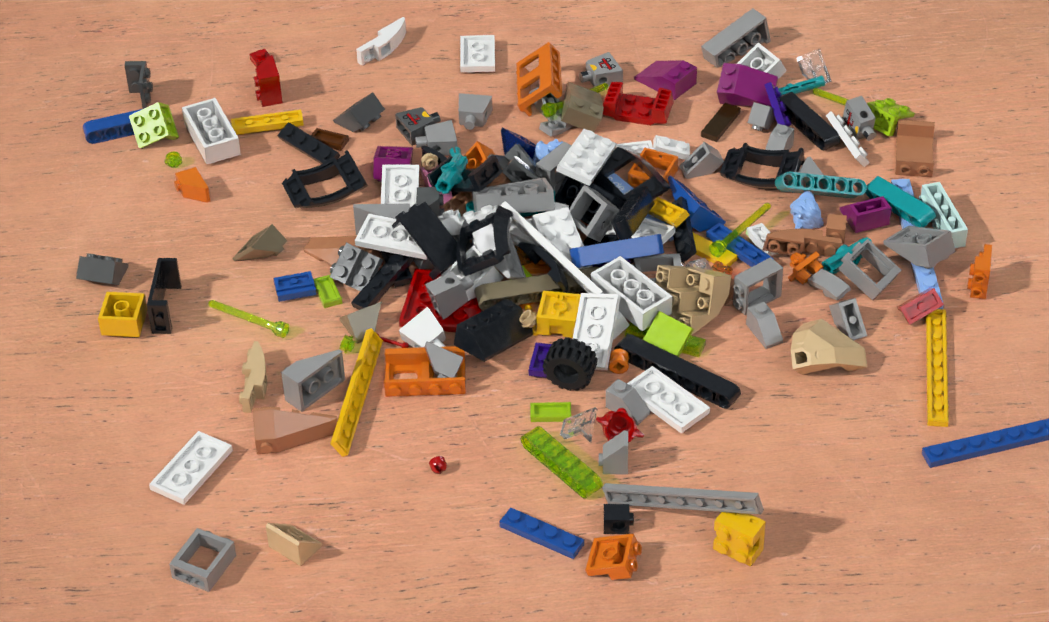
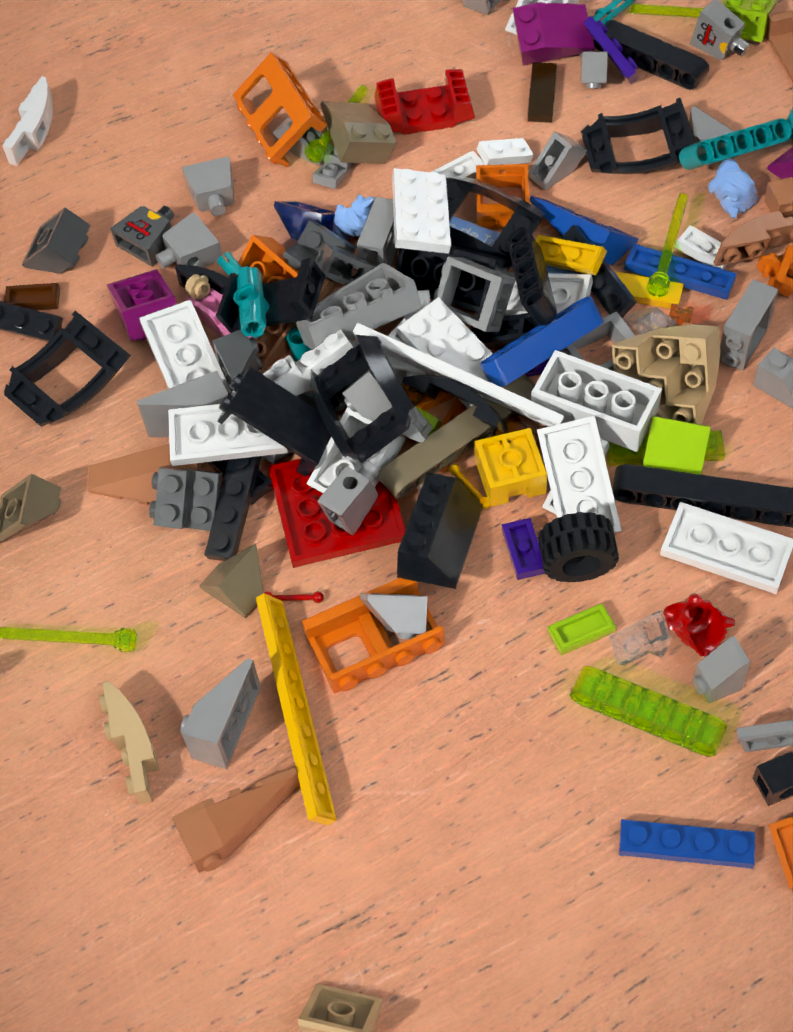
camera: 20 degrees left, 15 degrees up
(191, 467) = (114, 946): white plate -> none
(294, 286) = (108, 558): blue plate -> none
(327, 291) = (158, 547): lime tile -> none
(347, 344) = (236, 627): clear neon green plate -> none
(421, 329) = (342, 570): white torso -> none
(438, 464) = (477, 786): red hinge -> none
(477, 53) = (169, 97): white plate -> none
(528, 319) = (475, 492): tan plate -> none
(602, 70) = (350, 68): light grey torso -> none
(619, 361) = (630, 511): orange wheel -> none
(625, 396) = (679, 574): light grey slope -> none
(670, 75) = (437, 48): magenta slope -> none
(781, 138) = (638, 92): light grey slope -> none
(850, 141) = (728, 67): white plate -> none

